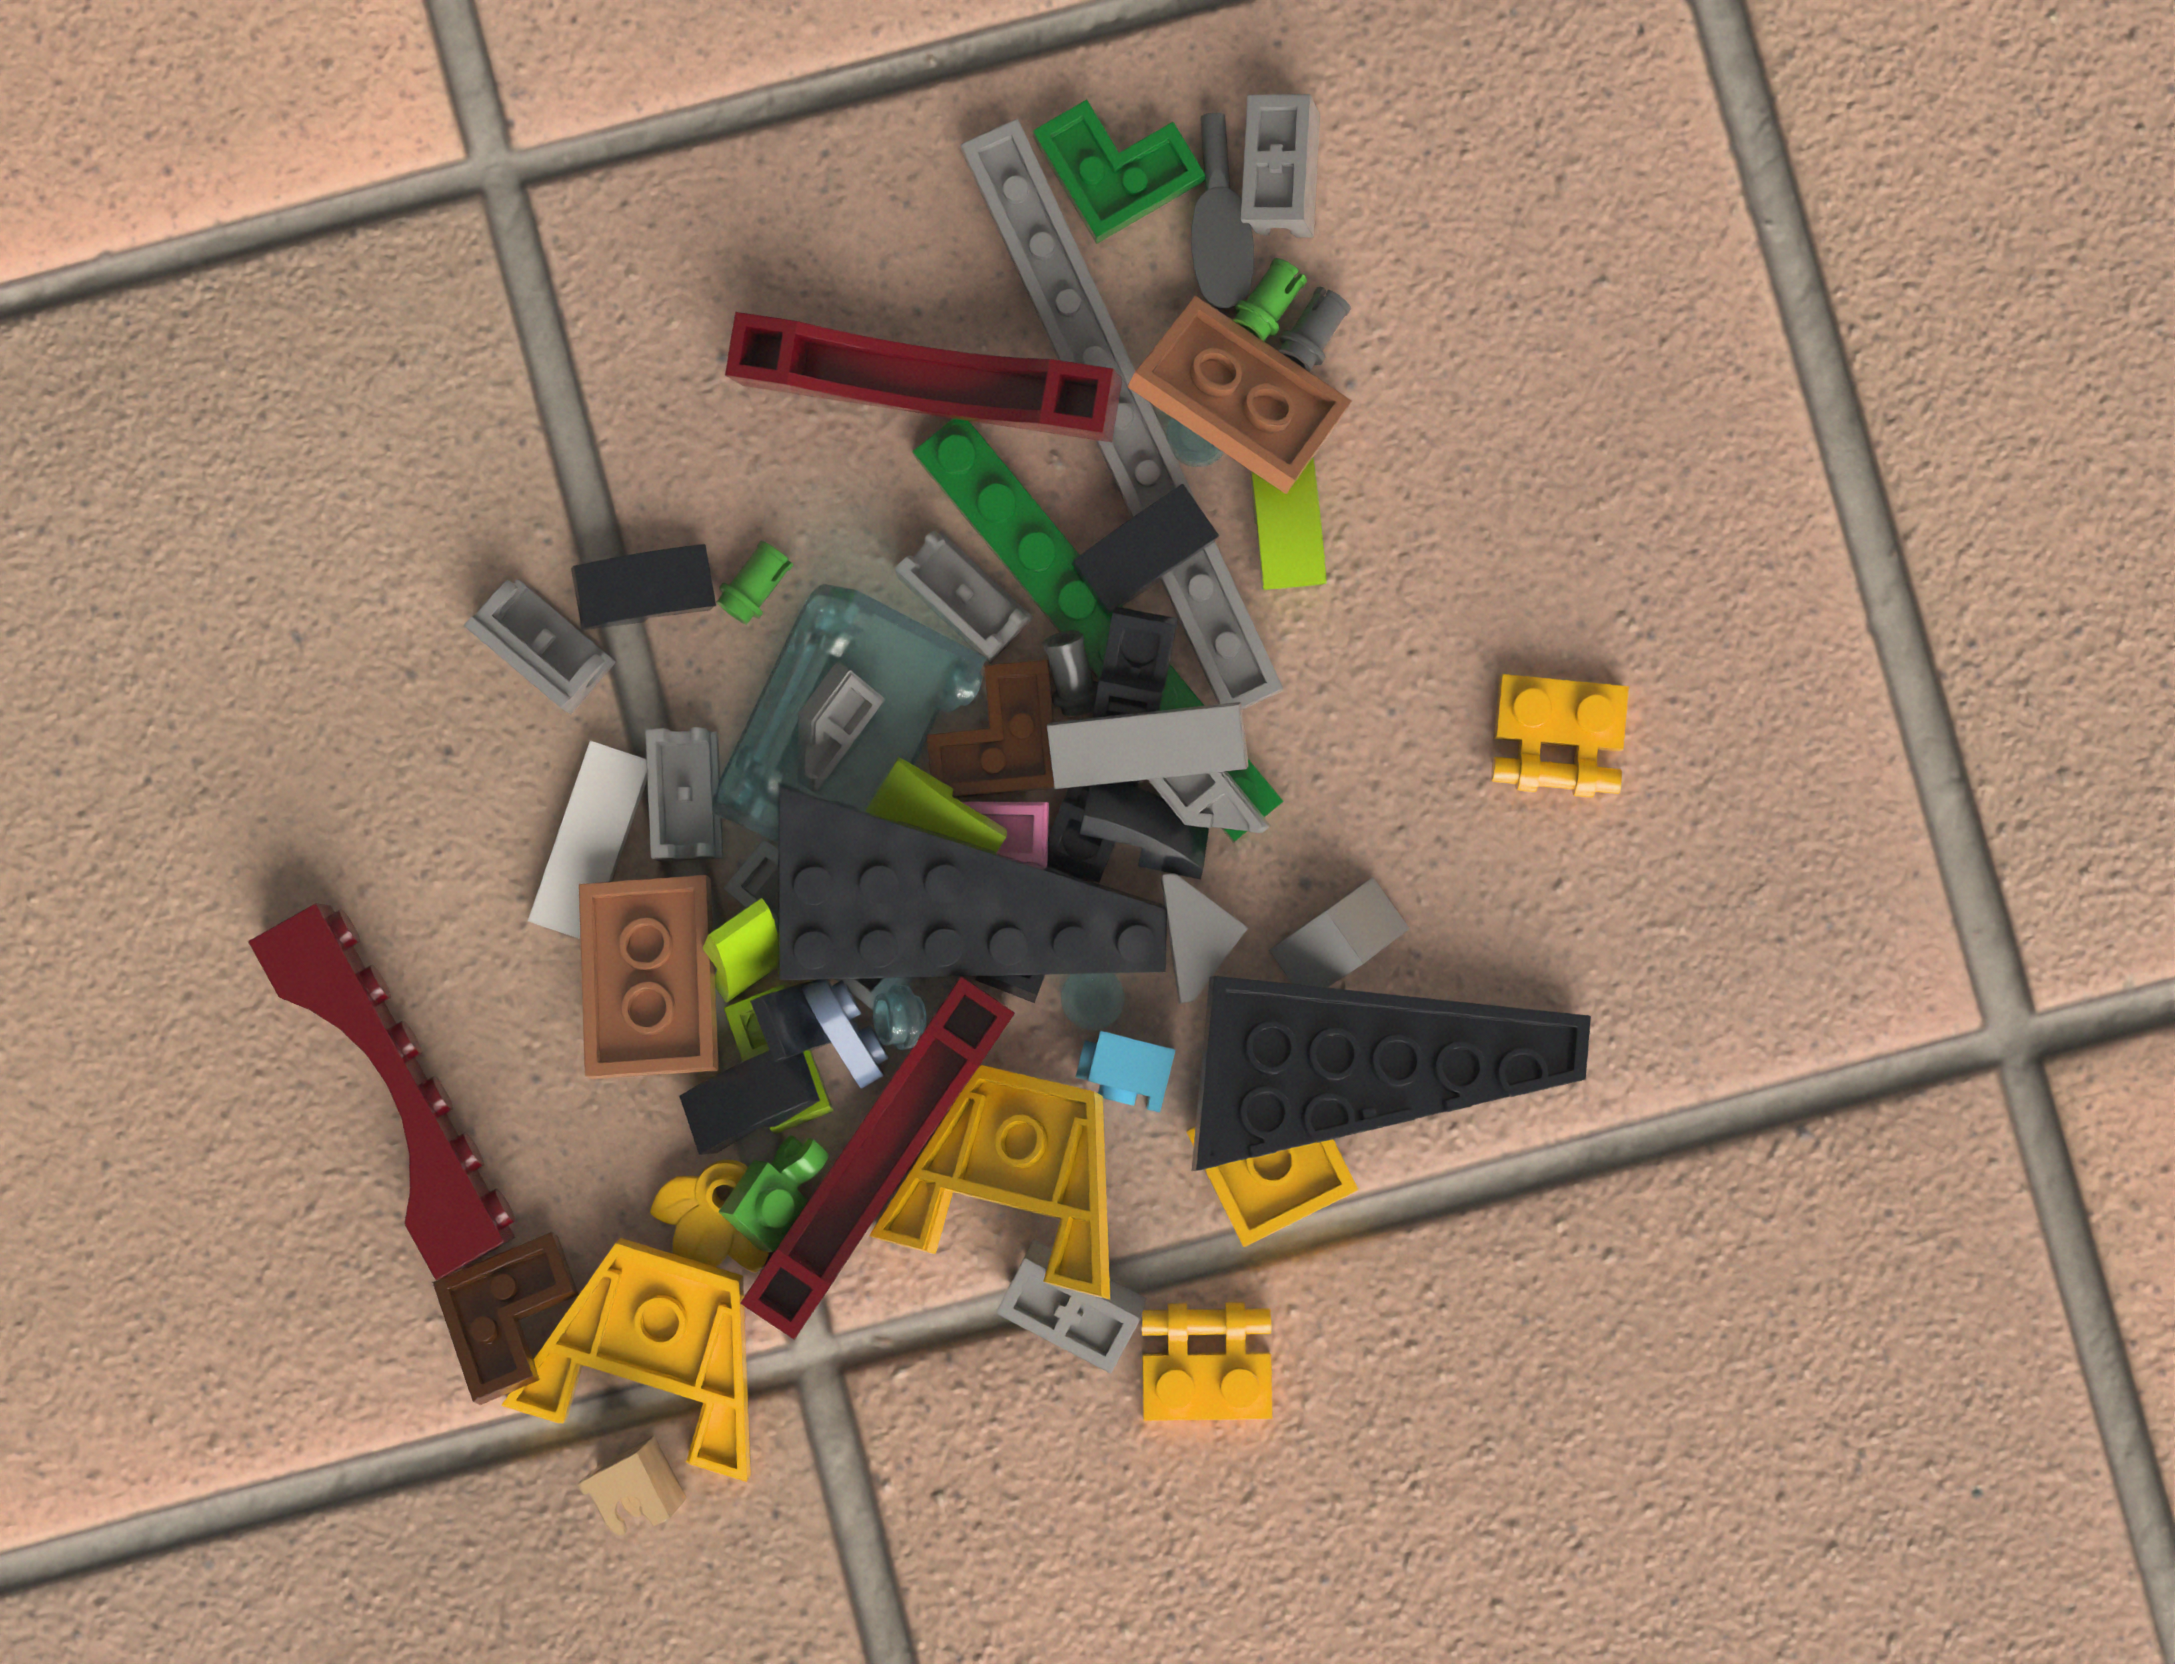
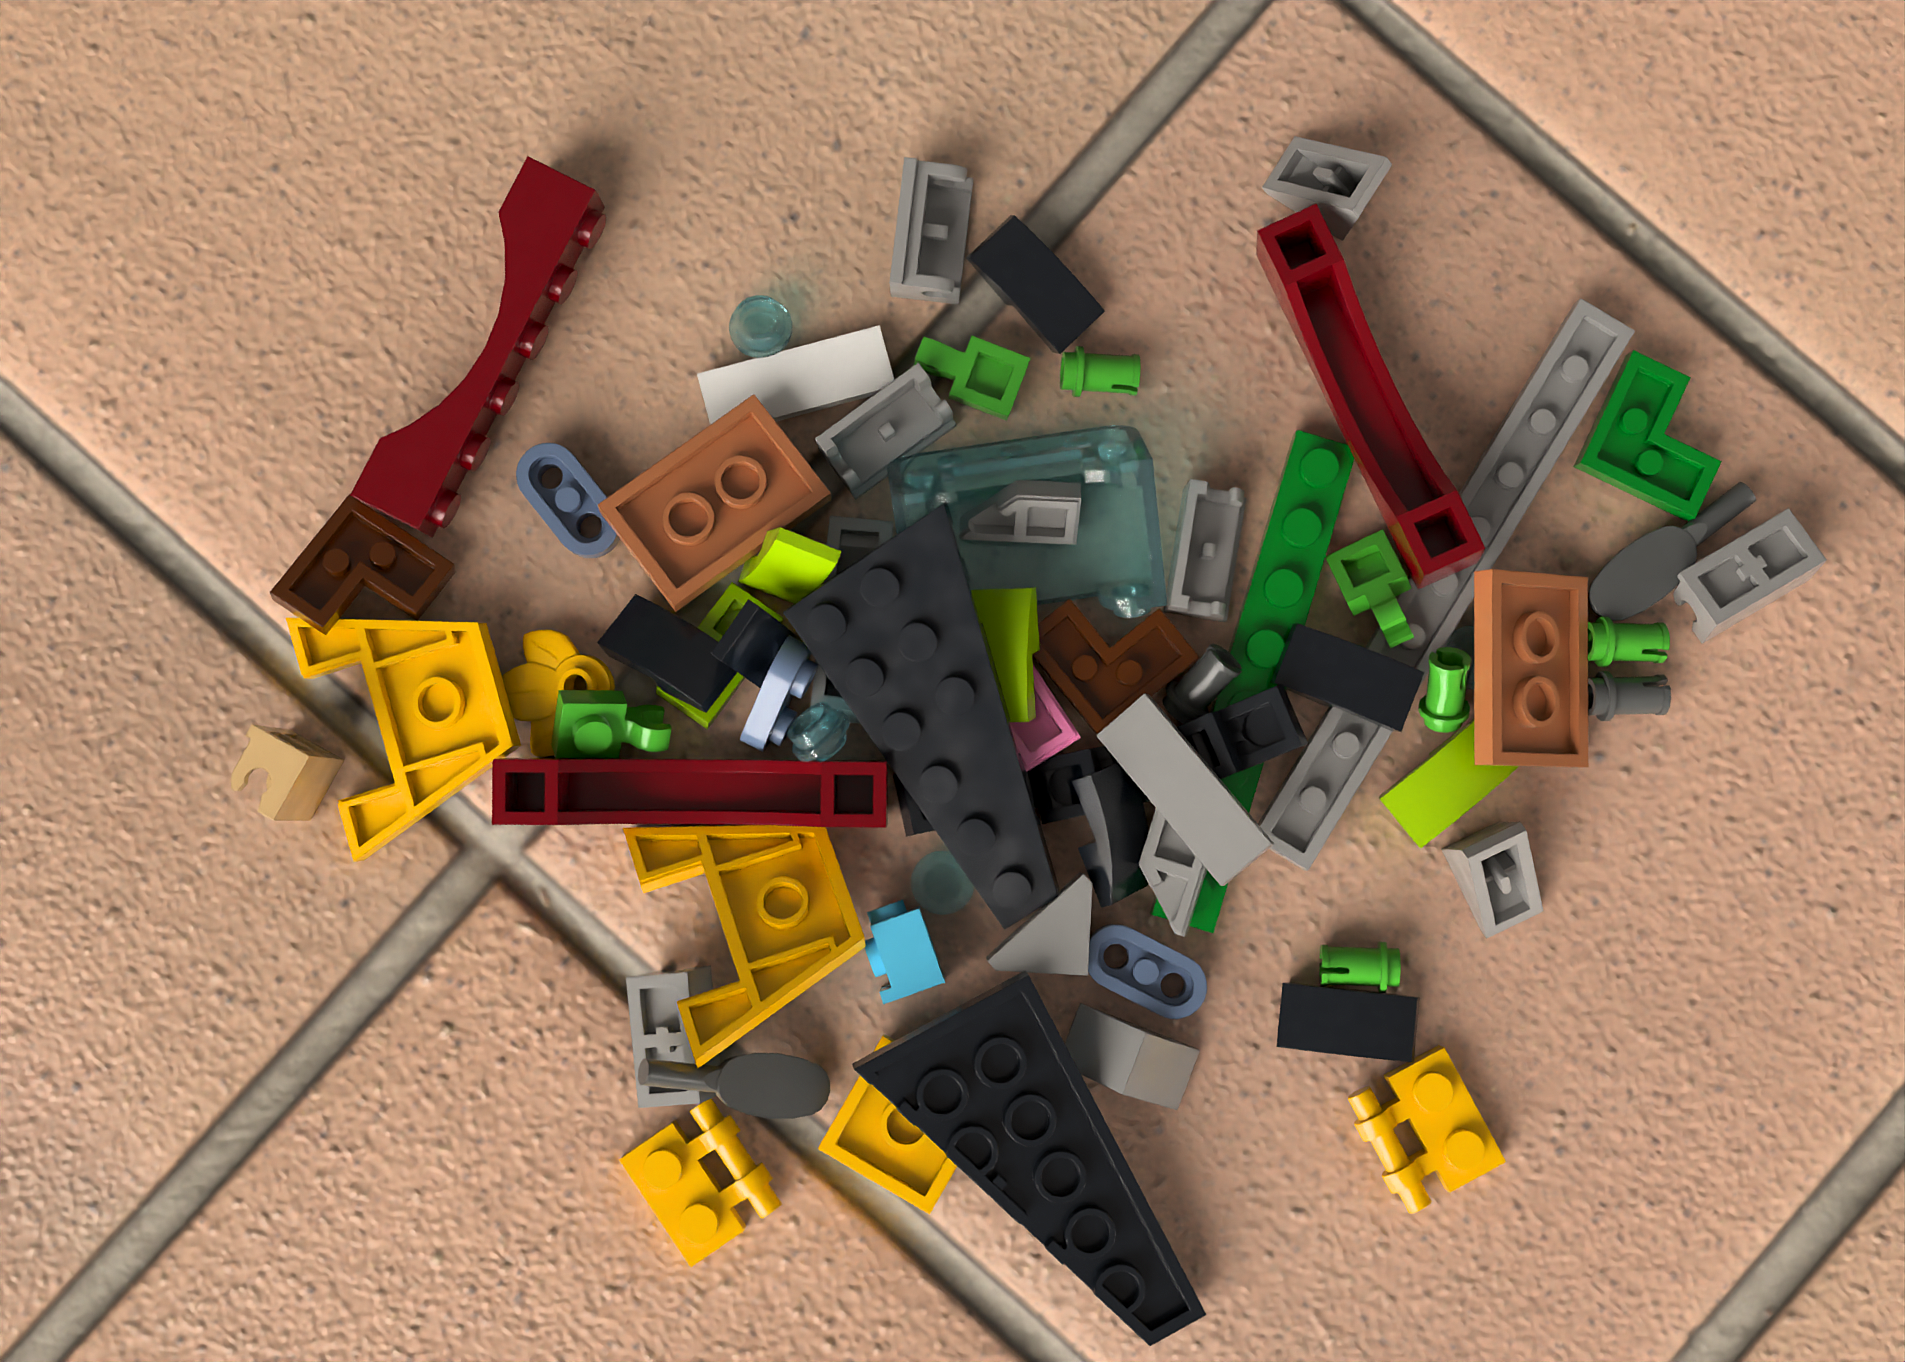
camera: 55 degrees right, 0 degrees up
(524, 841) = (760, 326): none -> clear light blue plate
(564, 1101) = (567, 504): none -> sand blue plate
(691, 681) = (983, 376): none -> bright green plate
(720, 284) = (1328, 175): none -> light grey slope
(1077, 474) = (1372, 579): none -> bright green plate
(1151, 1267) = (751, 1083): none -> dark grey piece
(1221, 483) = (1445, 702): none -> bright green pin
(1276, 879) = (1143, 971): none -> sand blue plate
(1391, 698) = (1360, 966): none -> bright green pin
(1392, 536) = (1496, 876): none -> light grey slope
(1429, 739) = (1348, 1022): none -> black slope

